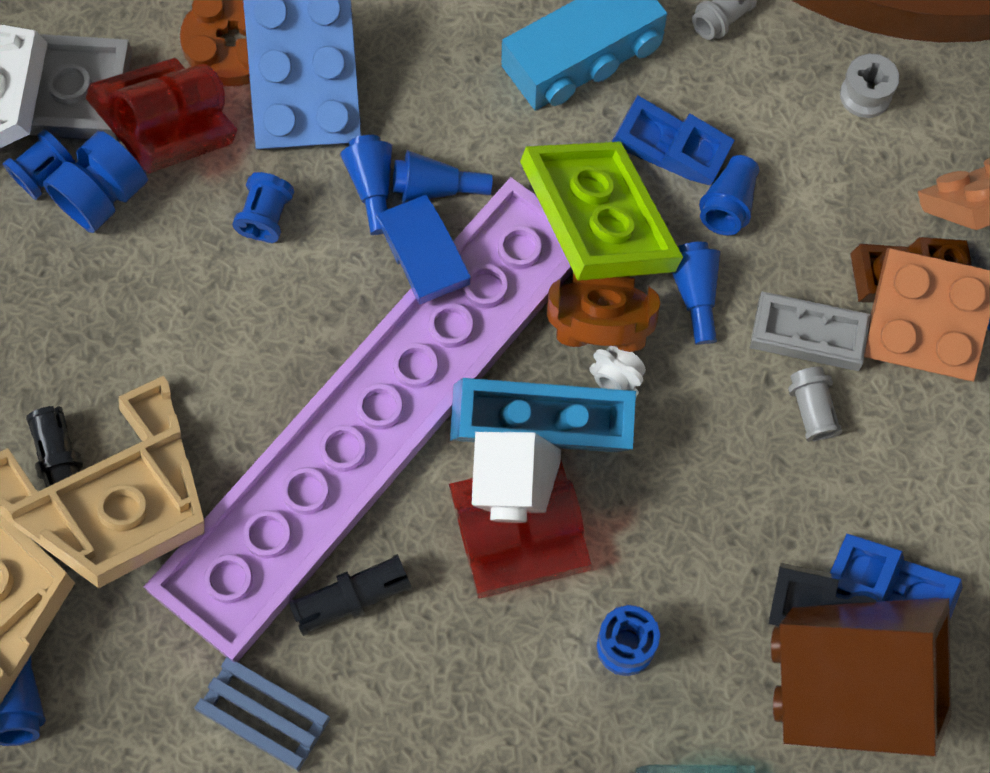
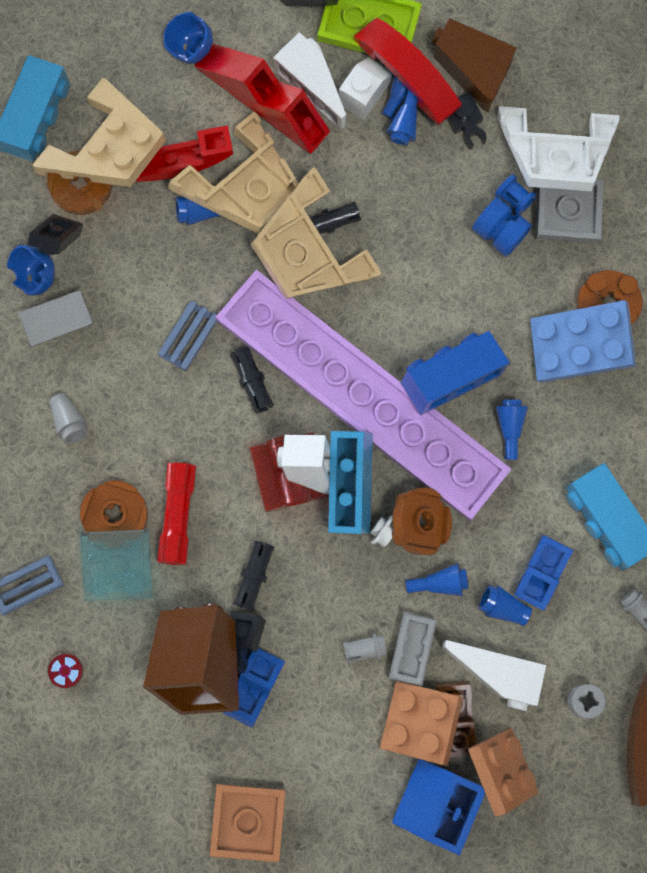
camera: 85 degrees right, 10 degrees up
(164, 112) = (548, 262): clear red plate -> none
(263, 207) = (491, 322): blue bush -> none
(348, 256) = (454, 371): none -> blue brick
(369, 168) = (517, 385): blue cone -> none
(423, 249) = (461, 416): blue slope -> none
(600, 210) = (486, 521): lime plate -> none
(623, 650) = (223, 535): blue wheel -> none
(645, 726) = (174, 538): none -> red axle
(704, 587) = (254, 575): none -> black pin
(843, 191) = (504, 675): none -> white slope

